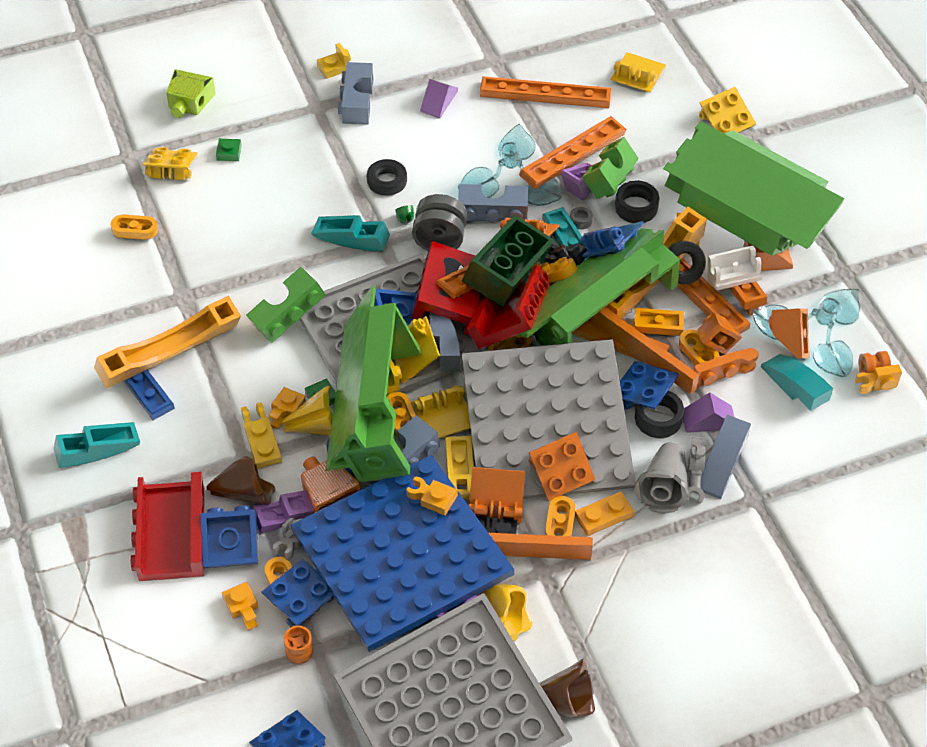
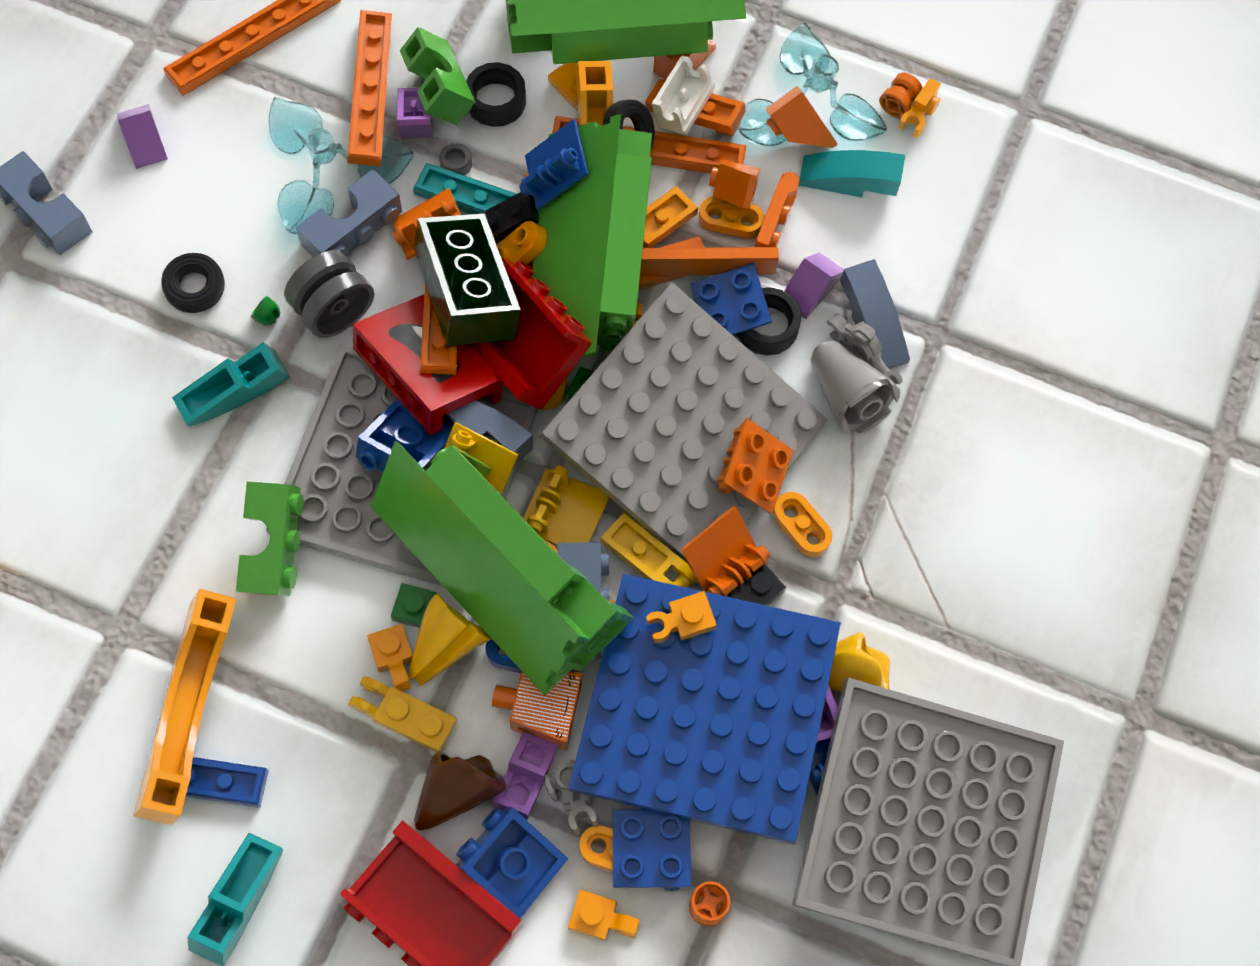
camera: 50 degrees left, 15 degrees up
(544, 546) = (819, 565): orange tile -> none
(571, 691) = (1000, 693): reddish brown hat -> none
(604, 513) = (829, 476): light orange plate -> none

